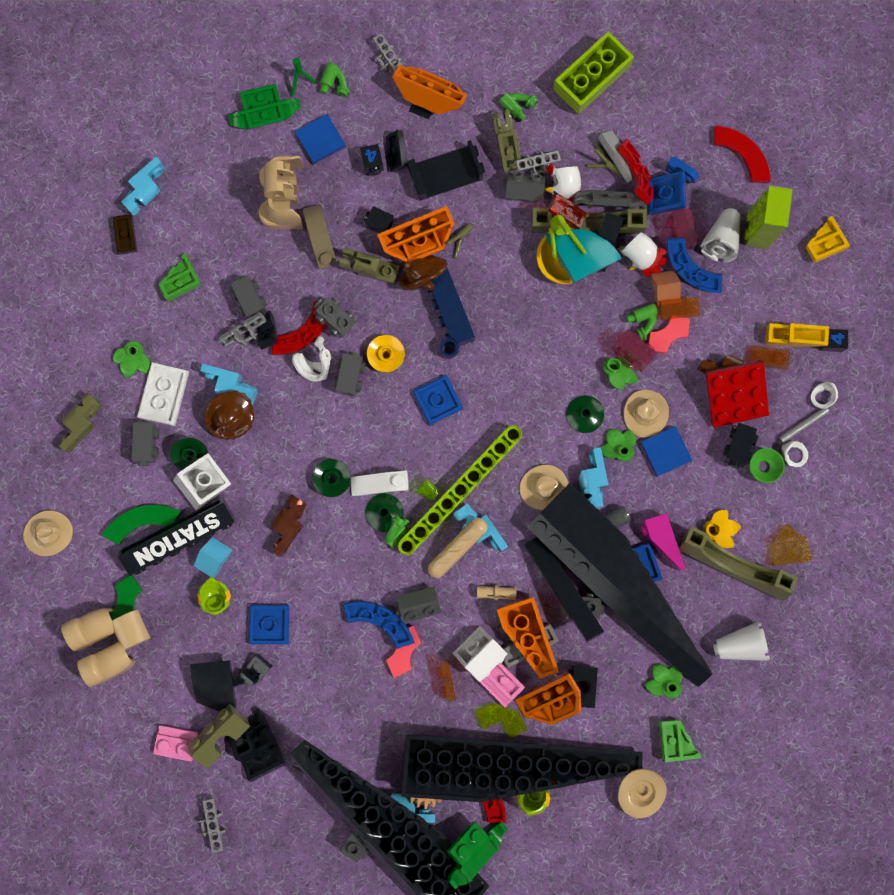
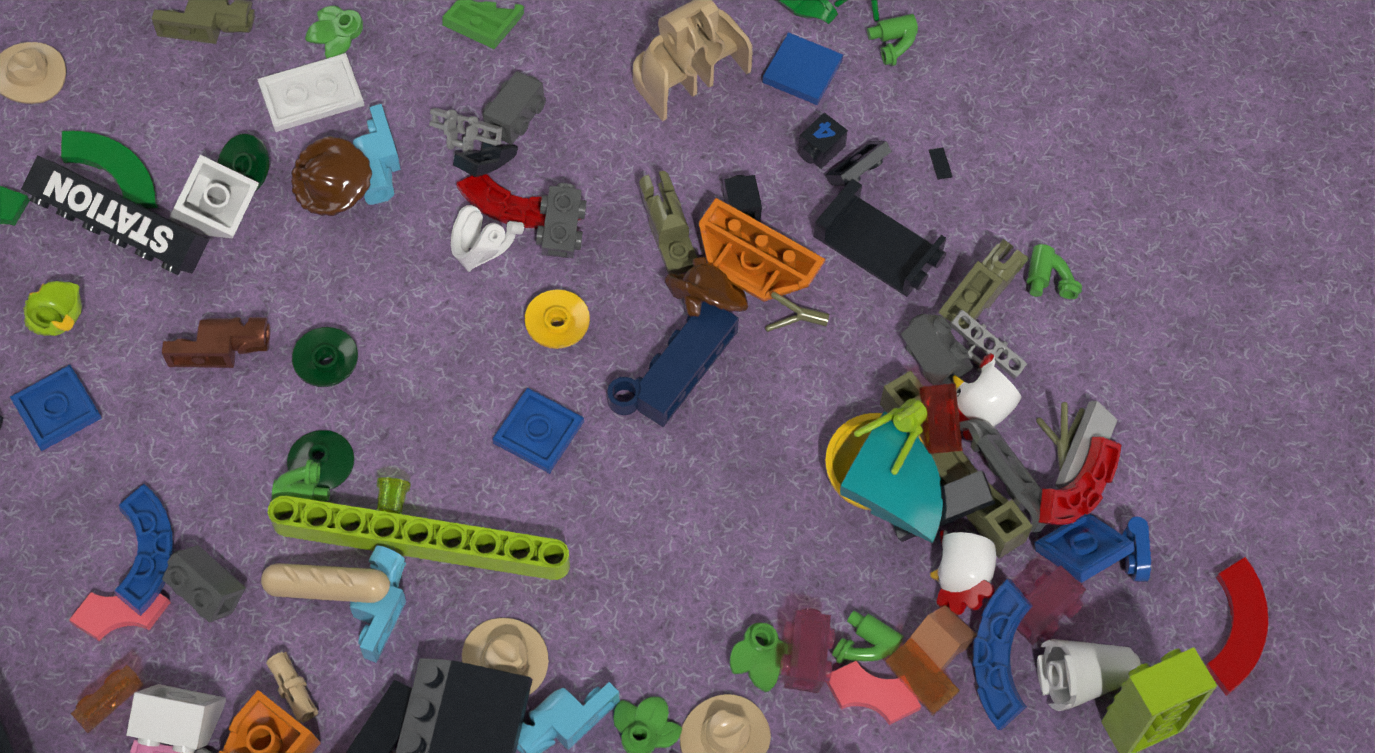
camera: 55 degrees right, 20 degrees down
(144, 443) = (224, 103): dark grey brick -> none
(212, 557) = (111, 275): medium azure piece -> none
(319, 236) = (661, 136): dark tan arch -> none
(351, 368) = (493, 289): dark grey brick -> none
(380, 483) = (361, 428): white slope -> none
(394, 65) = (977, 73): light grey piece -> none
(428, 90) = (973, 145): orange wedge -> none
(578, 420) = (657, 663): dark green dish -> none
(593, 72) = (1176, 337): lime brick -> none

